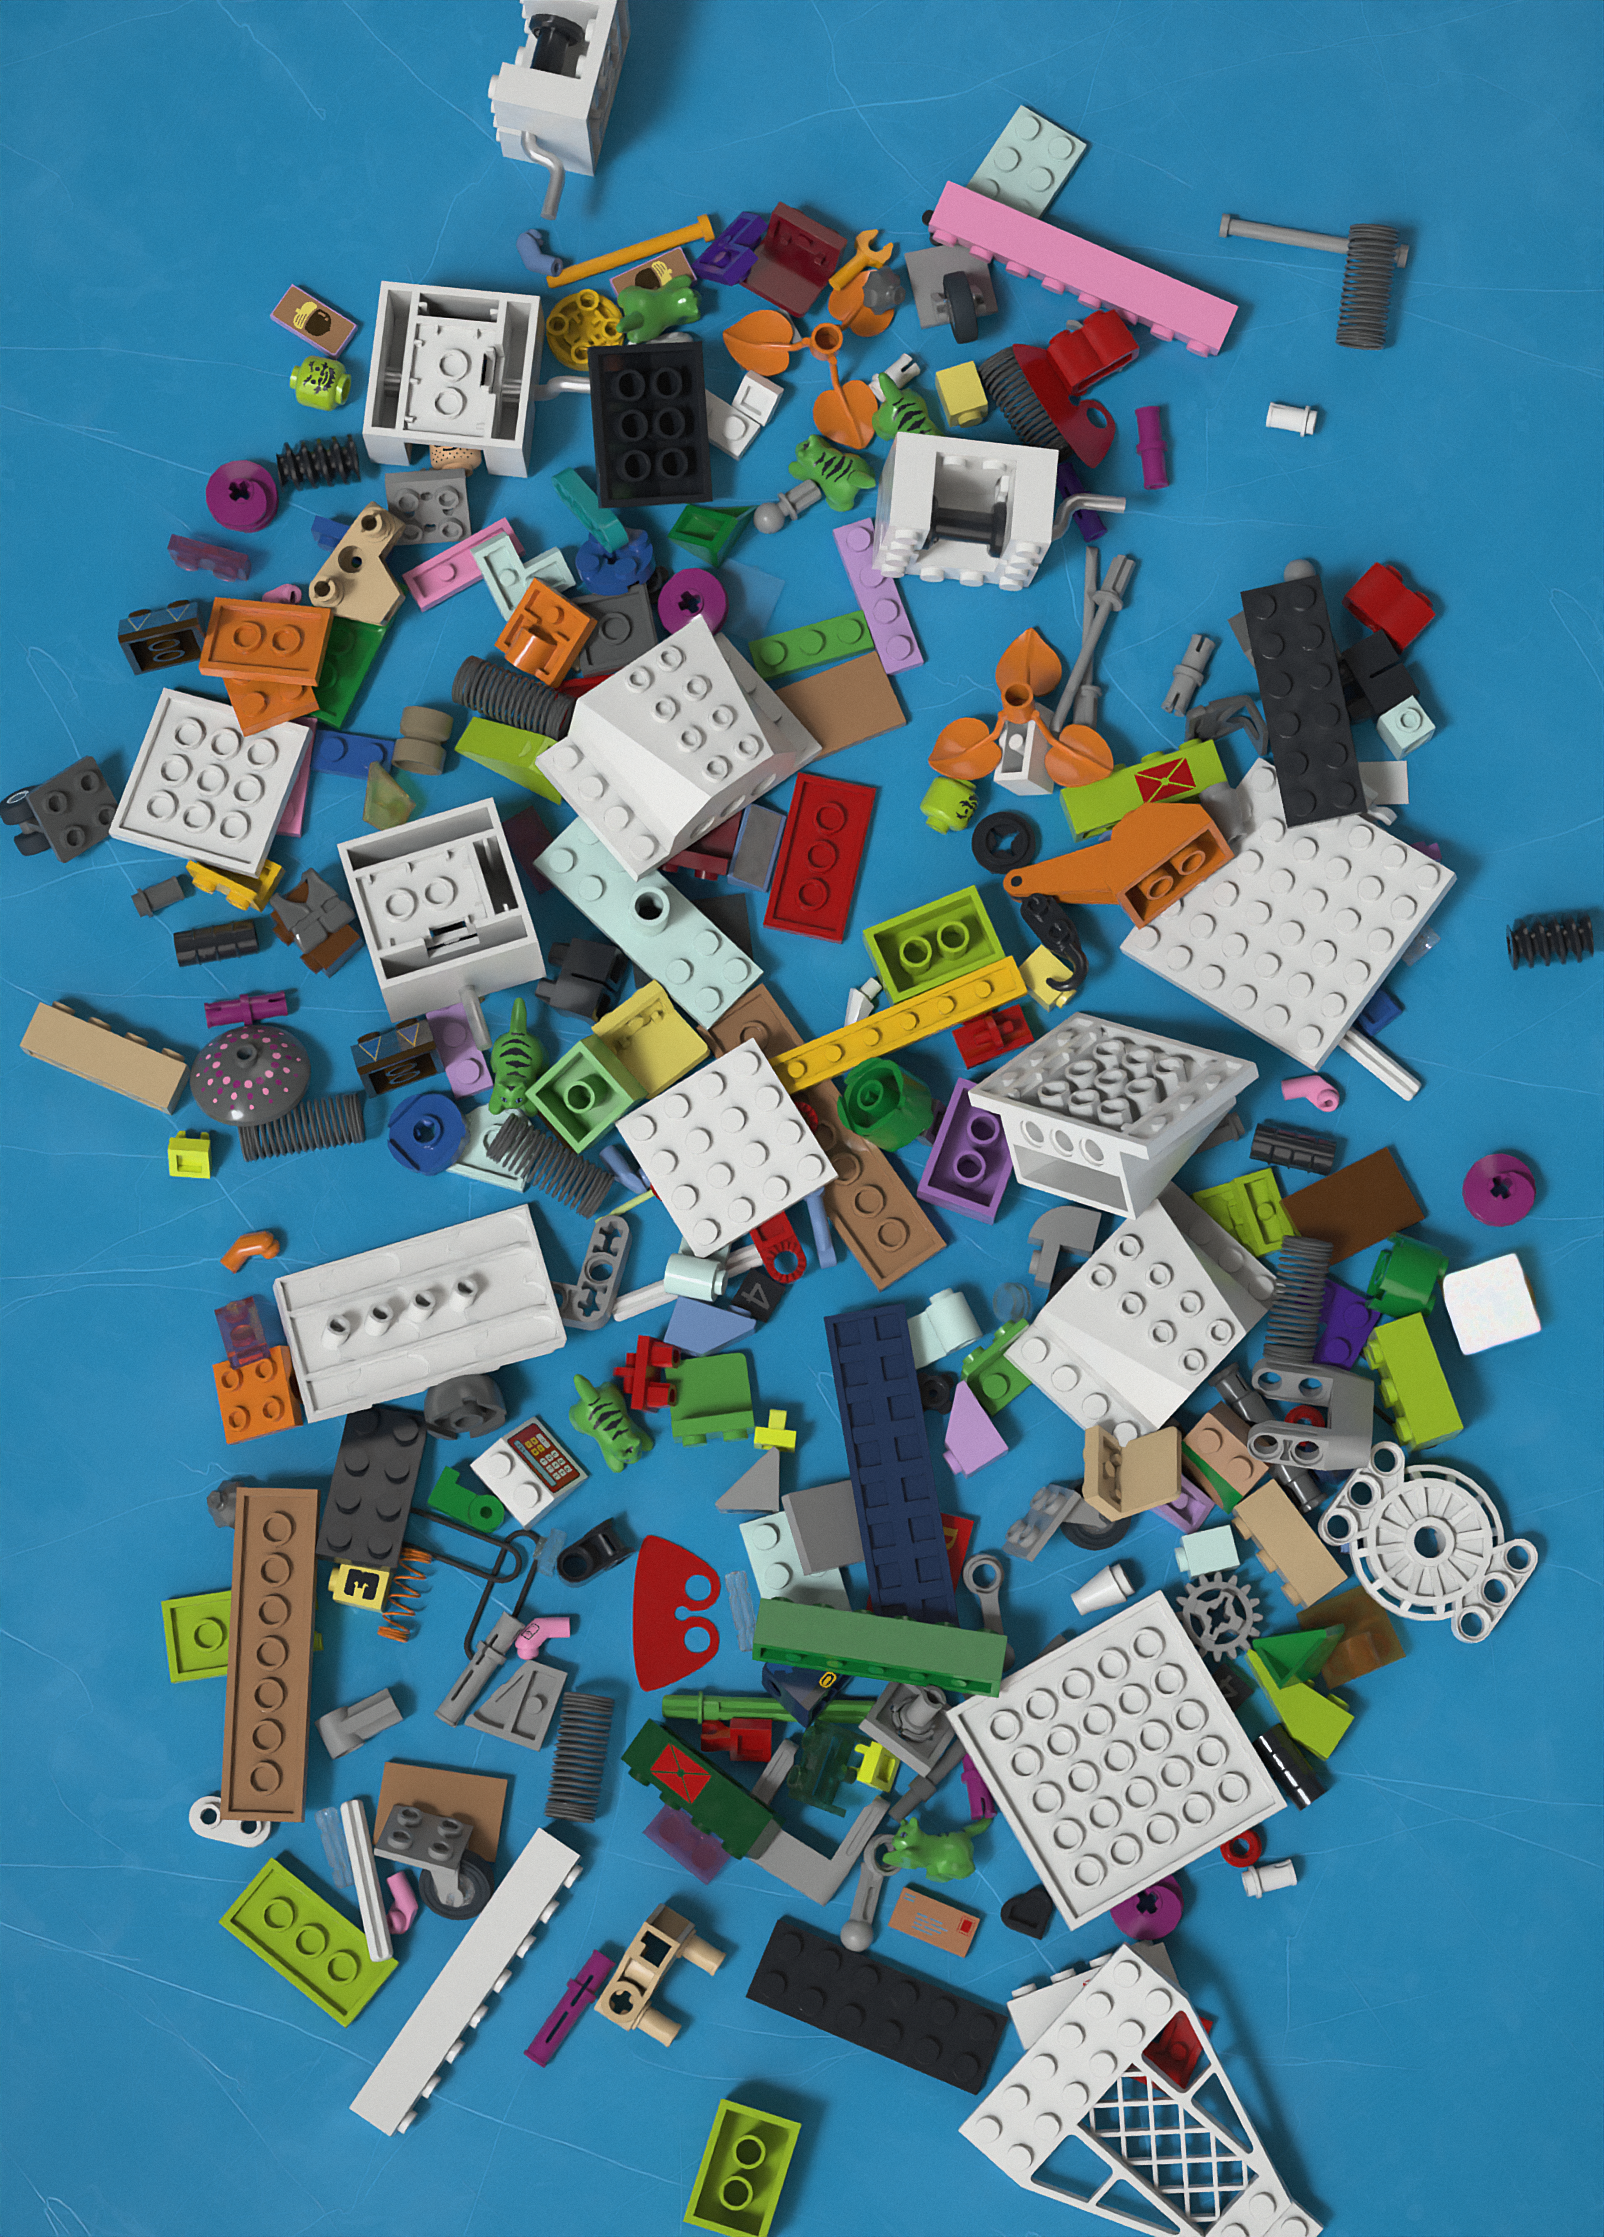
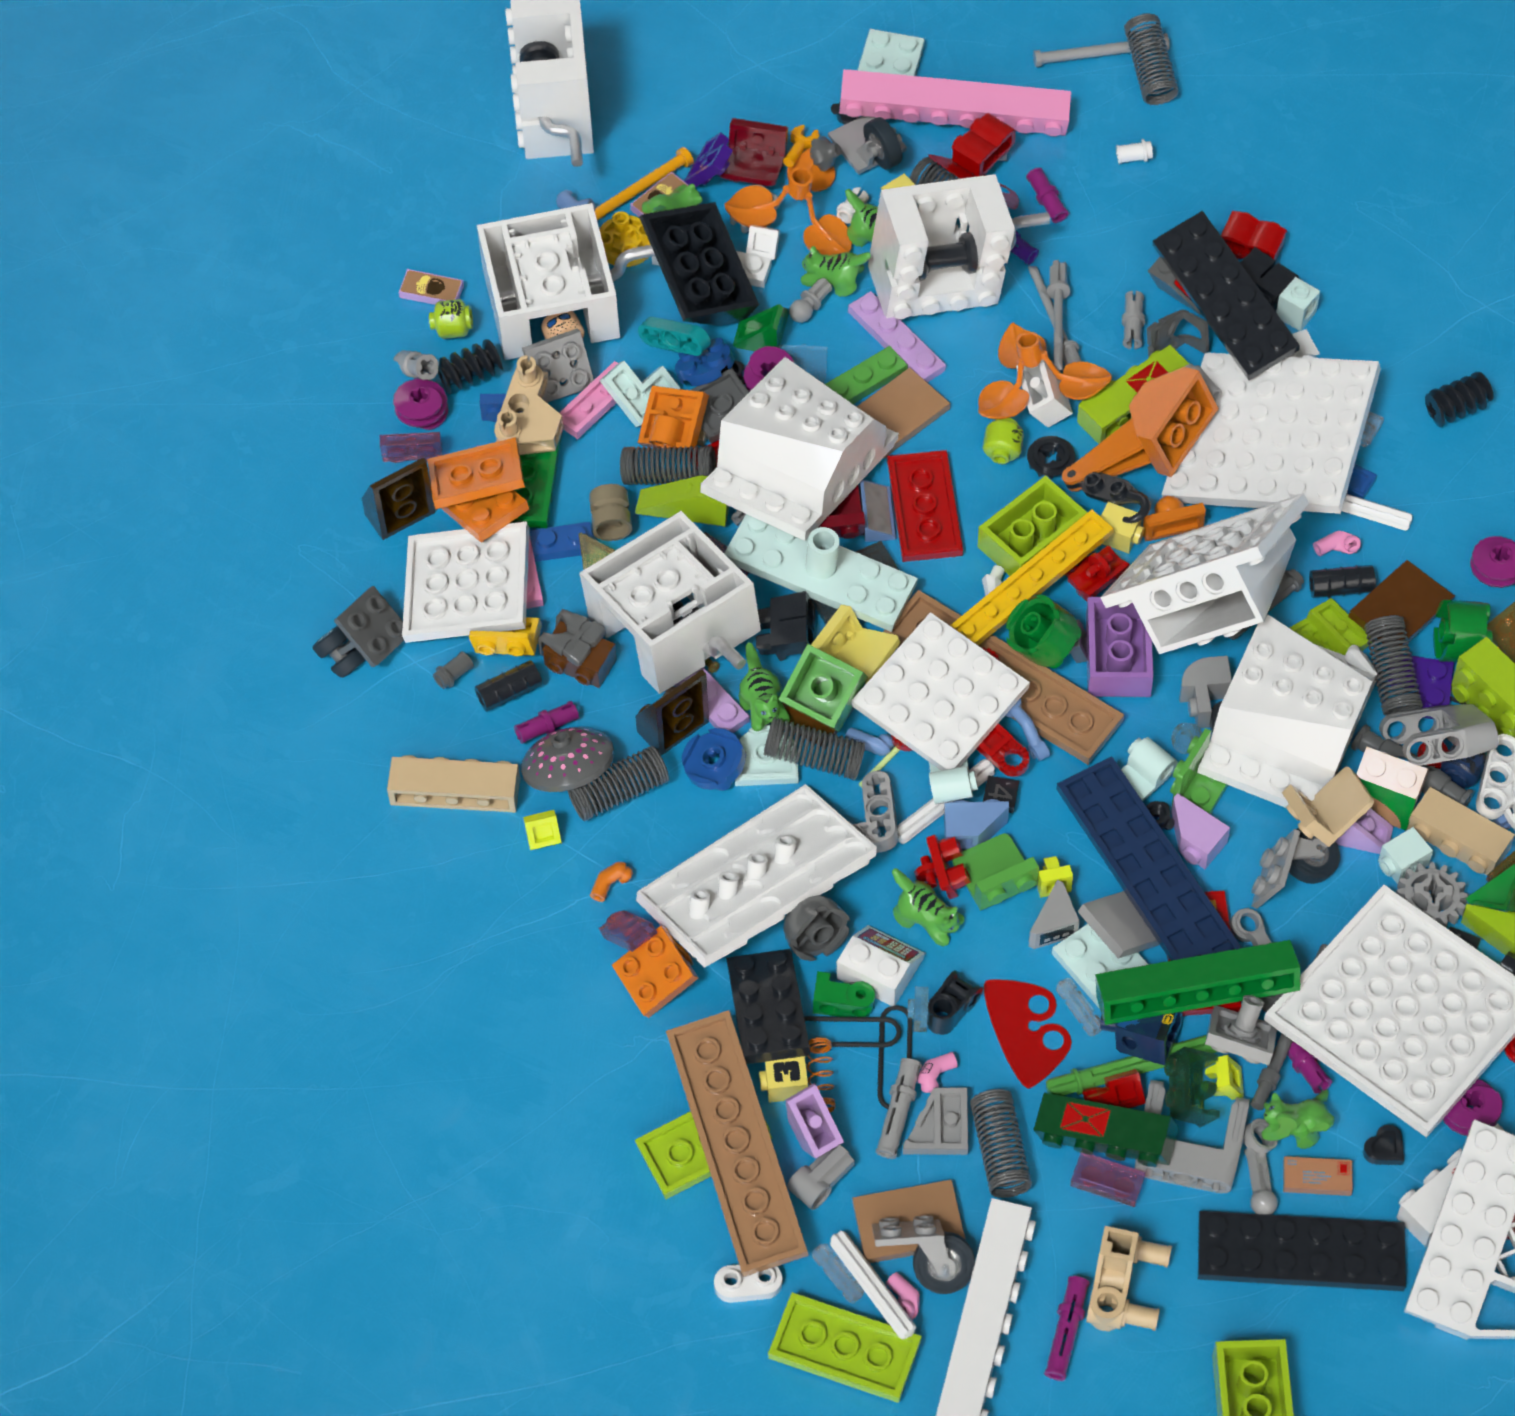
camera: 20 degrees left, 20 degrees down
(223, 1503) = (659, 1055): dark grey piece -> none
(241, 430) = (417, 365): none -> light grey piece
(367, 1665) = (812, 1122): none -> lavender slope
(1103, 1590) = (1341, 904): white cone -> none
(1118, 986) = (1172, 518): none -> orange tile
(1261, 1277) = (1358, 659): none -> white bar

